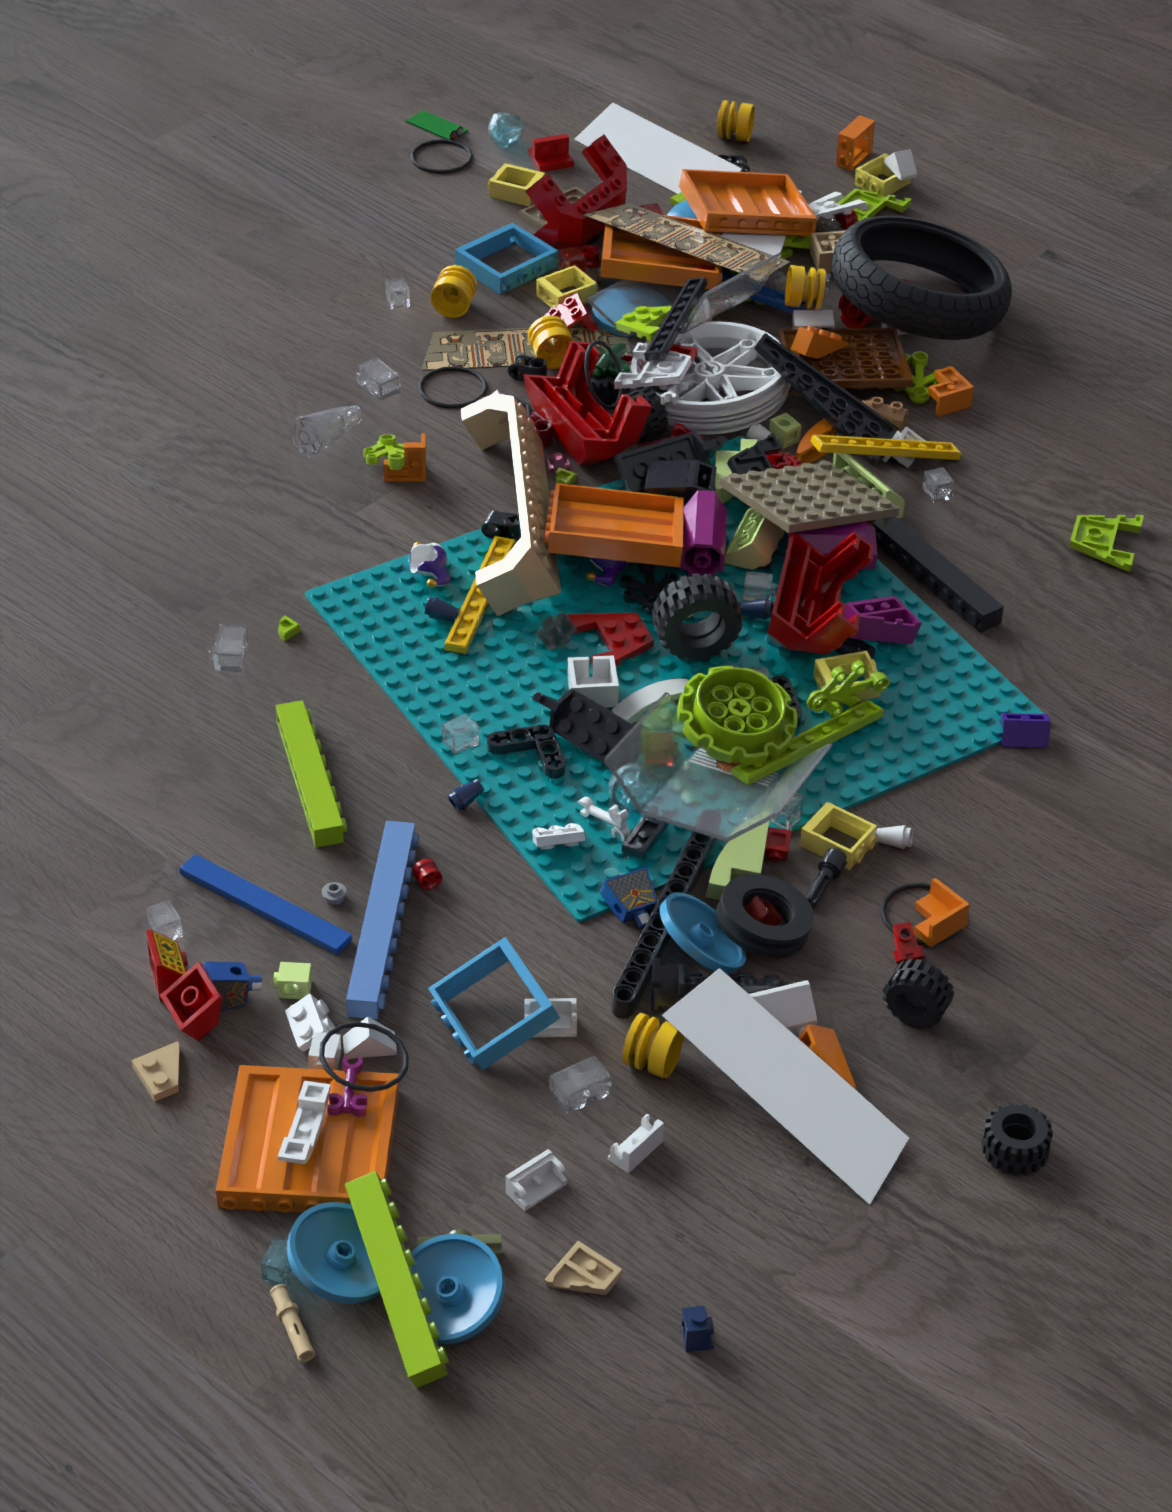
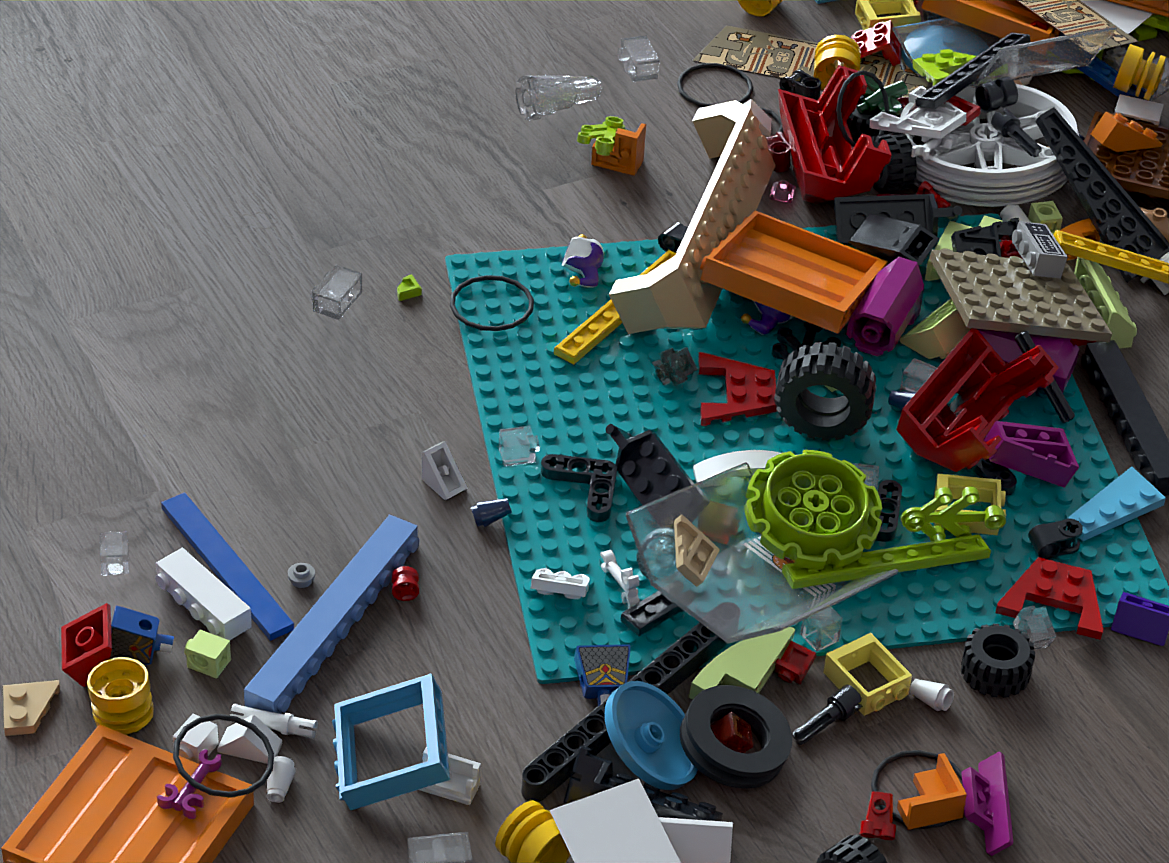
camera: 20 degrees right, 0 degrees up
(165, 960) = (87, 589): red slope -> none
(244, 1035) = (120, 695): none -> yellow wheel
(263, 933) = (203, 595): none -> white brick
(306, 1018) = (201, 697): white bracket -> none
(306, 1124) = (125, 810): white slope -> none
(310, 774) = (344, 444): lime brick -> none
(372, 598) = (491, 328): none -> black piece
(387, 1017) = (286, 724): none -> white pin
(406, 773) = (441, 471): none -> white slope
(415, 1063) = (280, 779): none -> white cone
(440, 609) = (568, 310): dark blue cone -> none
(565, 477) = (781, 209): lime tile -> none
(602, 686) = (685, 440): white piece -> none
(664, 776) = (693, 551): none -> tan wing
(703, 334) = (996, 94): none -> black wheel
(728, 358) = (1010, 127): none -> black piece
(806, 454) = (1039, 249): none -> light grey brick
(871, 570) = (1052, 390): none -> black axle
(929, 685) = (1054, 540): none -> black piece
(933, 794) = (997, 660): none -> black tyre
(948, 761) = (1036, 625): none -> clear brick
(951, 723) = (1059, 587): none -> red wing
(959, 646) = (1118, 503): none -> medium azure wing
(985, 907) = (989, 802): none -> magenta bracket

